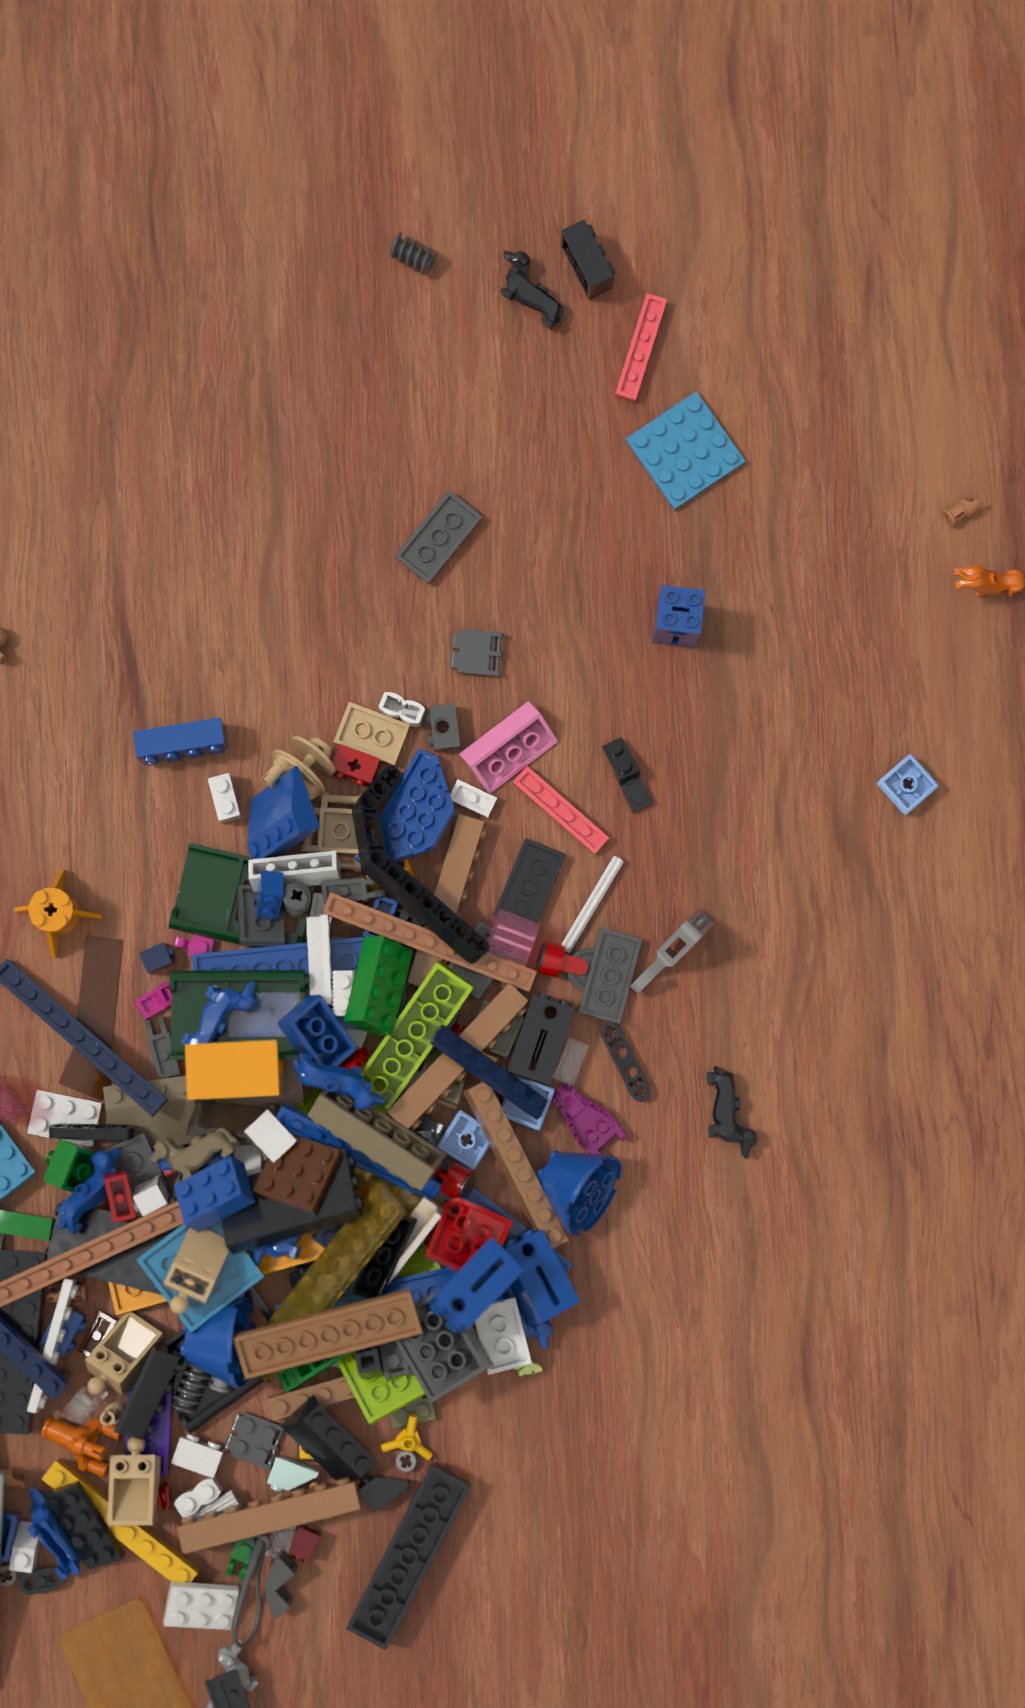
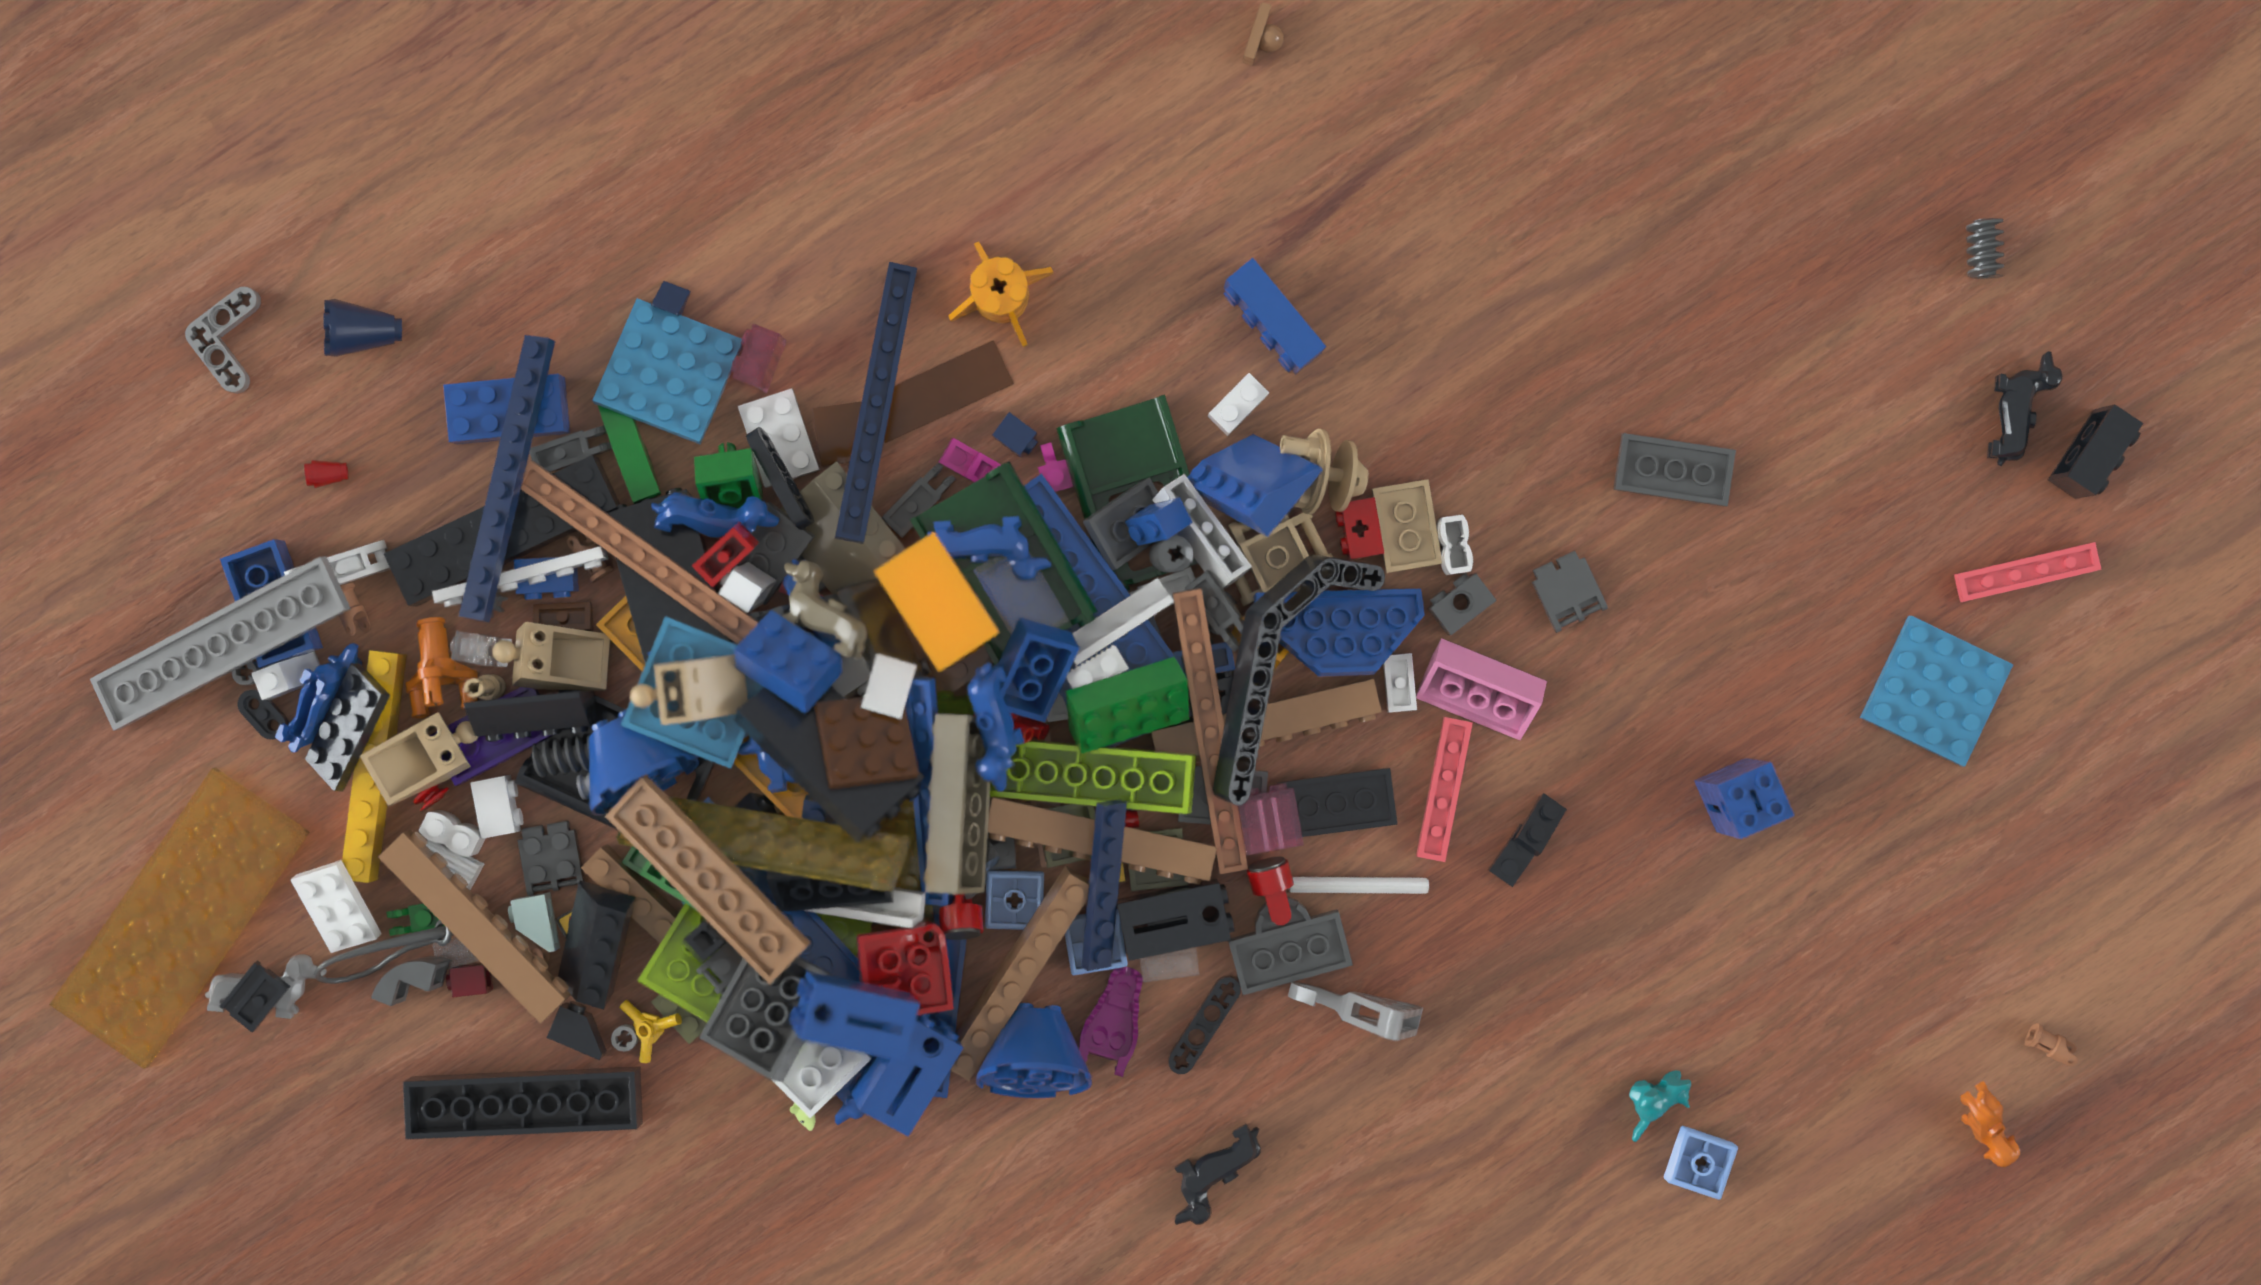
camera: 60 degrees right, 5 degrees up
(848, 791) = (1654, 1100): none -> teal animal

